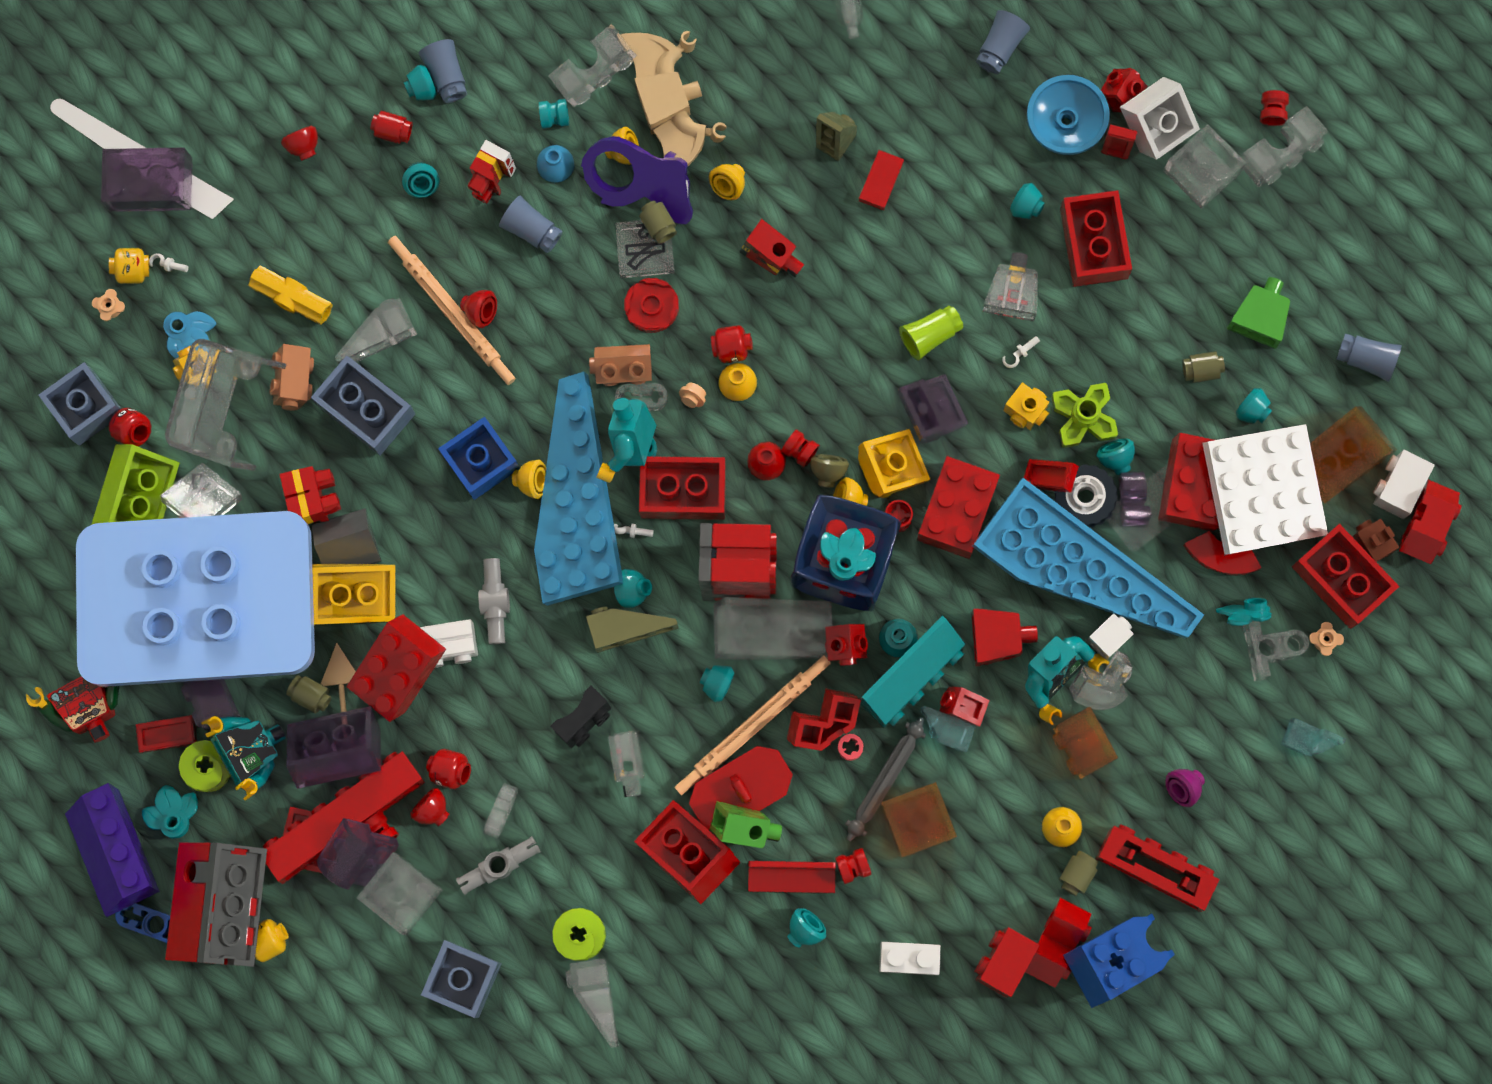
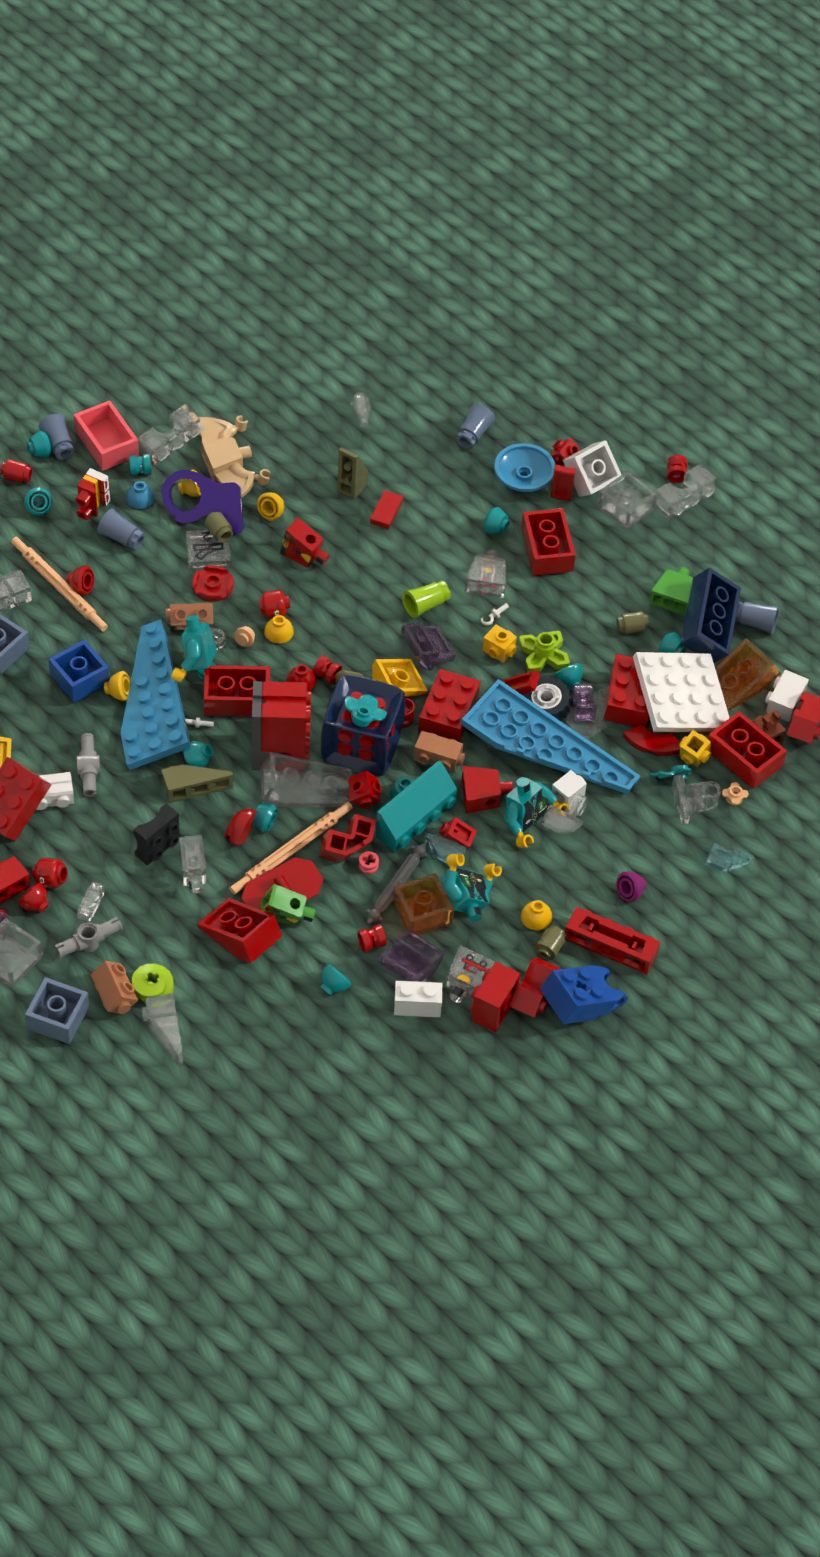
camera: 10 degrees left, 25 degrees down
(508, 69) = (106, 435): none -> coral piece
(531, 944) = (114, 987): none -> nougat brick
(686, 699) = (240, 825): none -> red brick
(791, 877) = (323, 944): red panel -> none
(902, 900) = (412, 957): none -> clear purple brick
(943, 581) = (435, 748): none -> nougat brick
(974, 921) = (466, 973): none -> clear torso
(977, 801) = (468, 889): none -> torso
(1084, 743) = (552, 854): clear orange slope -> none
(1285, 584) = (693, 743): none -> yellow brick
(1309, 364) = (711, 615): none -> dark blue brick

